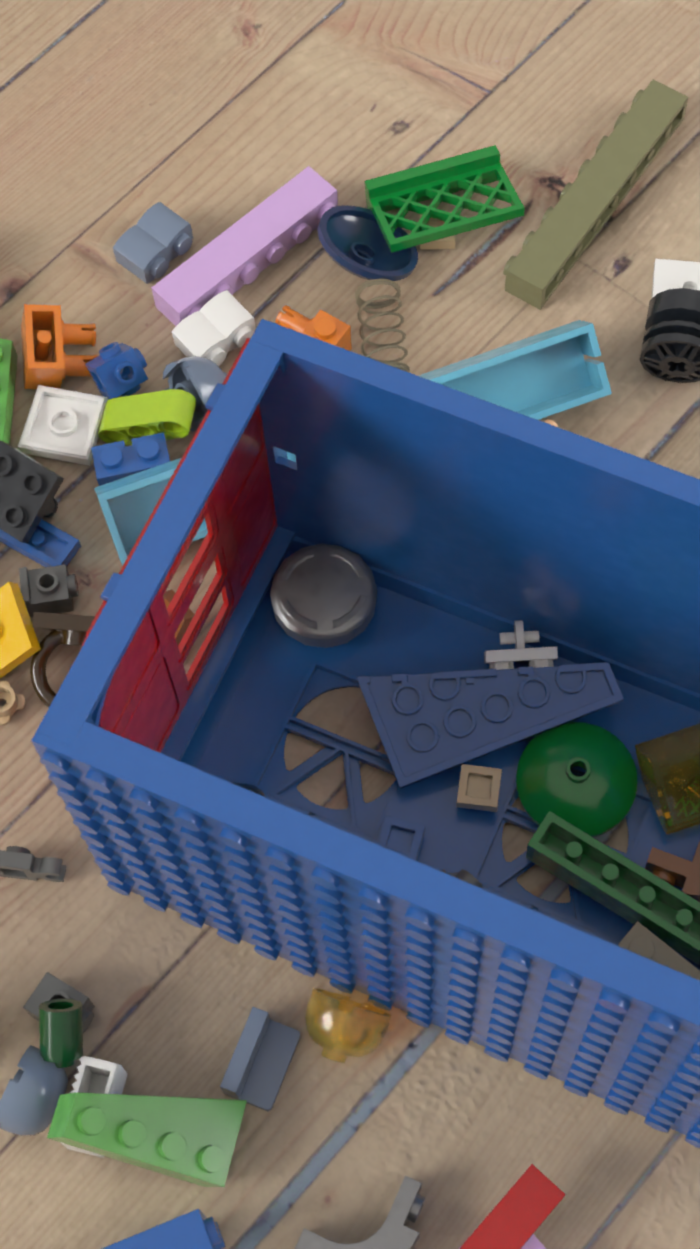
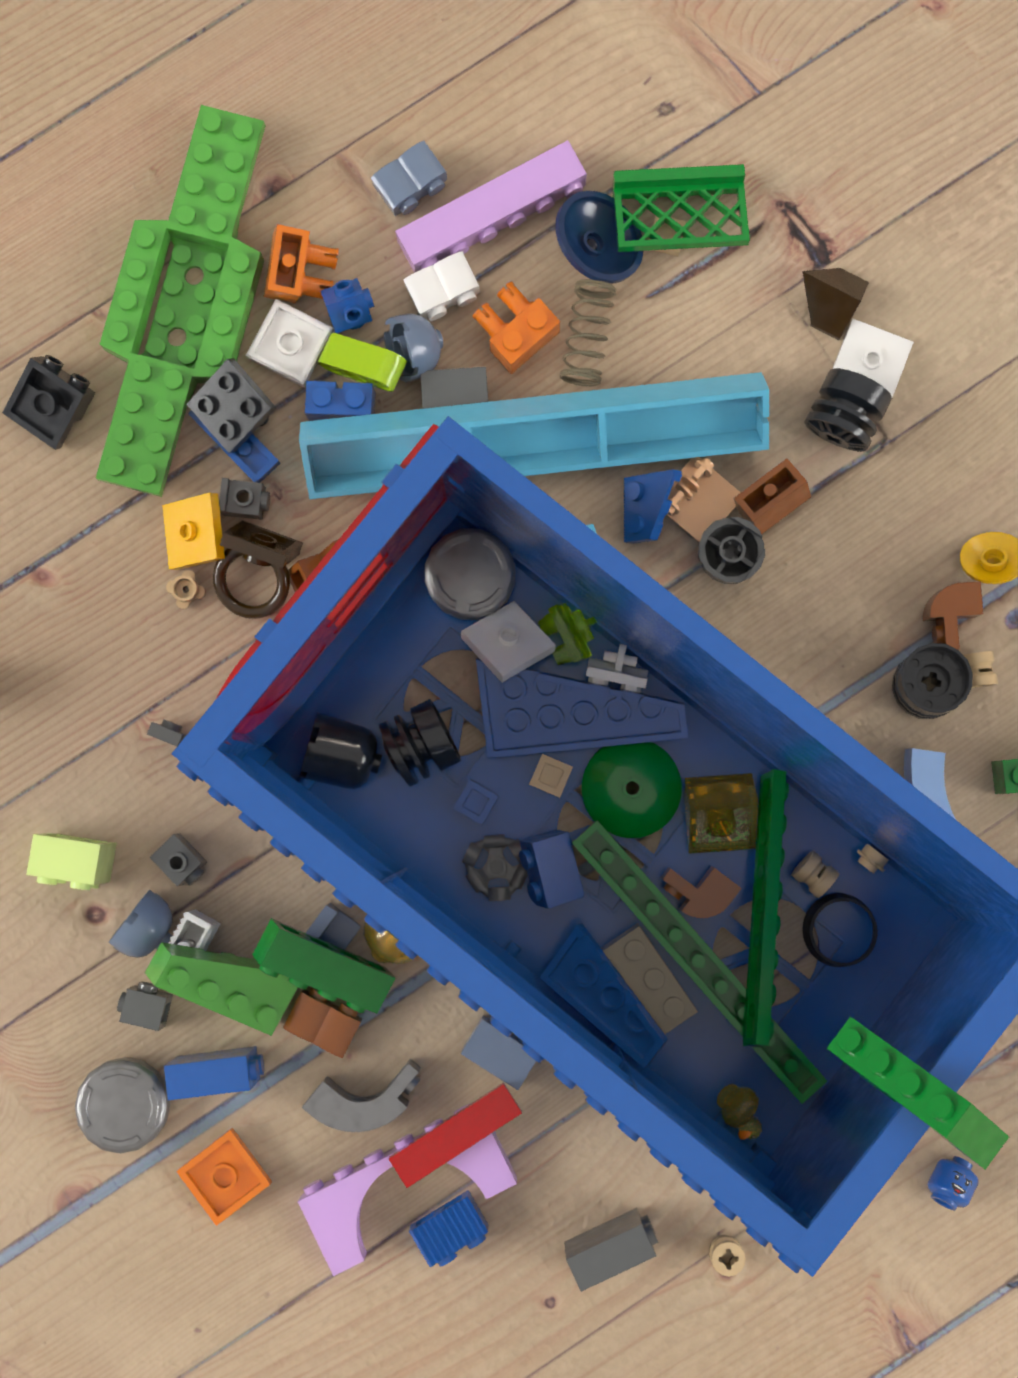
camera: 15 degrees right, 20 degrees up
(55, 1200) = (144, 1006): none -> dark grey brick
(61, 1031) = (173, 889): dark green brick -> none
(269, 1077) = (323, 967): none -> green brick
(284, 1158) = (323, 1022): none -> dark orange brick
(320, 781) = (419, 743): none -> black wheel
(386, 650) = (508, 641): none -> white plate
(462, 642) = (573, 630): none -> clear neon green hips
(514, 876) = (551, 869): none -> blue brick
(515, 1133) = (498, 1053): none -> sand blue brick
(594, 194) = (823, 234): olive brick -> none
(627, 248) = (832, 298): none -> dark brown slope
(638, 428) = (773, 496): none -> dark orange brick

